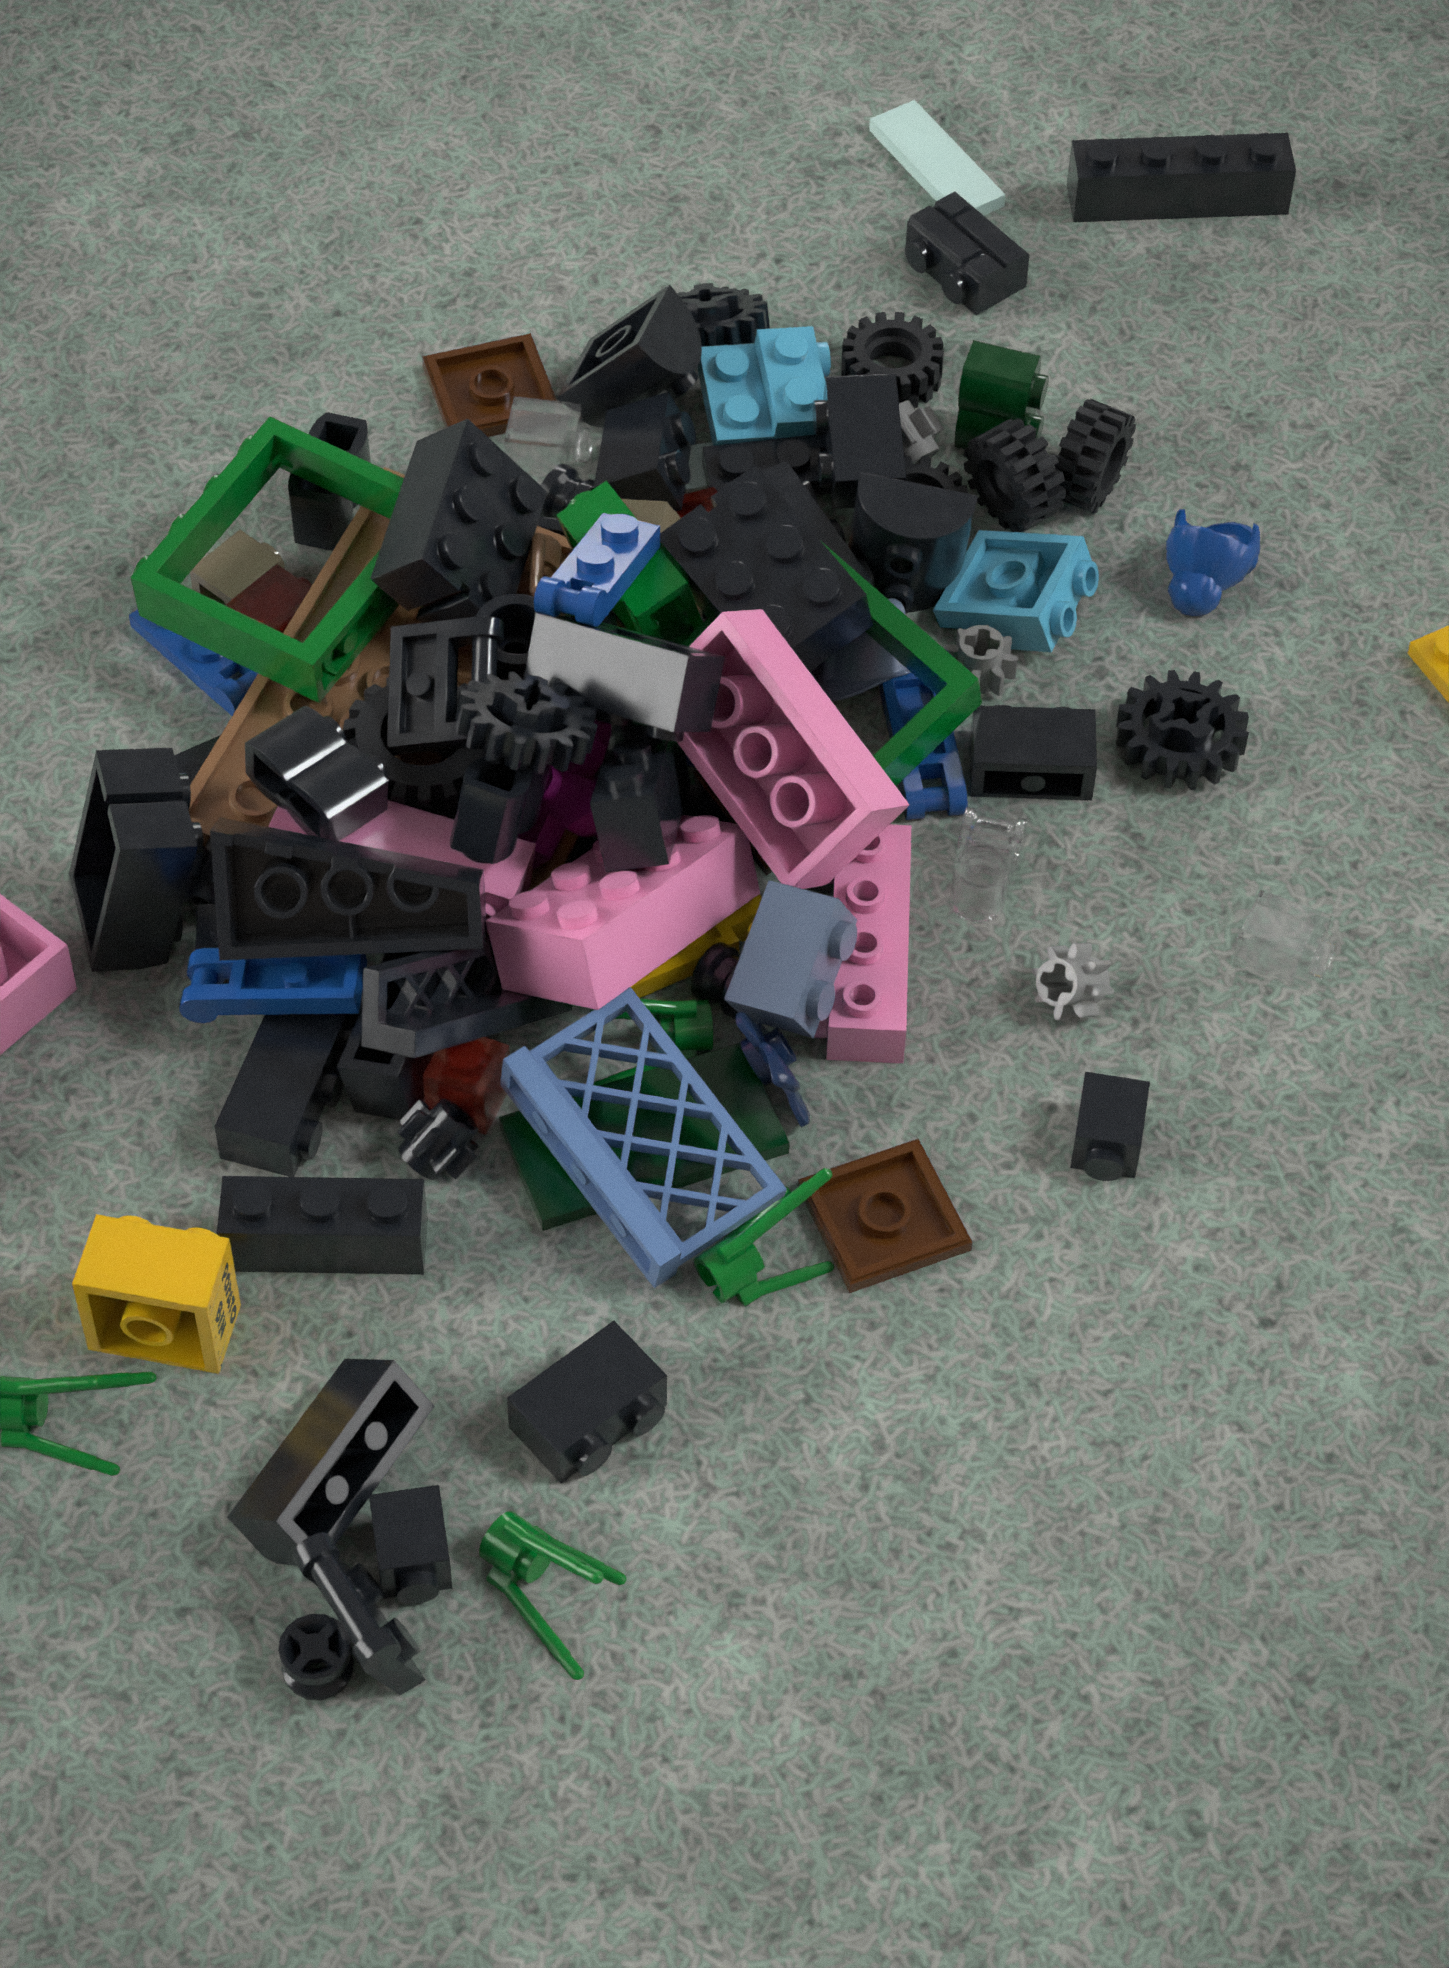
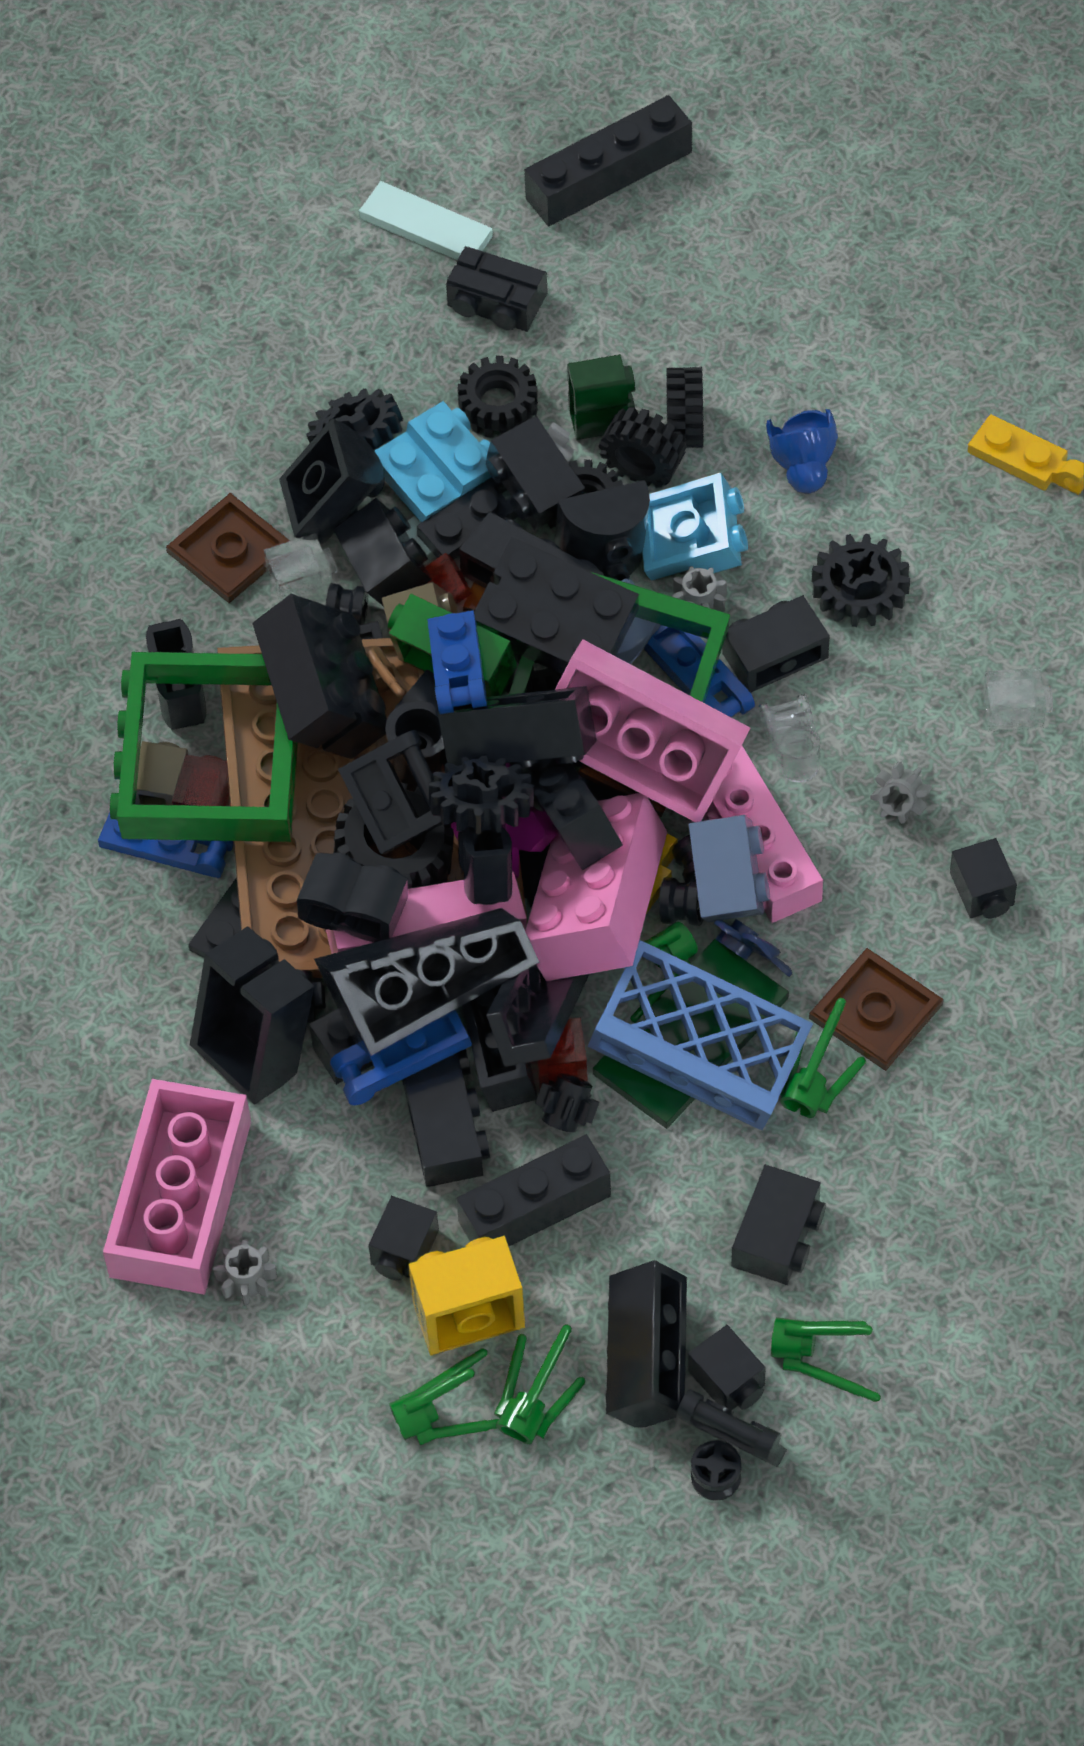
camera: 25 degrees left, 5 degrees up
(136, 1467) = (523, 1415): none -> green plant
(147, 1187) = (402, 1237): none -> black brick

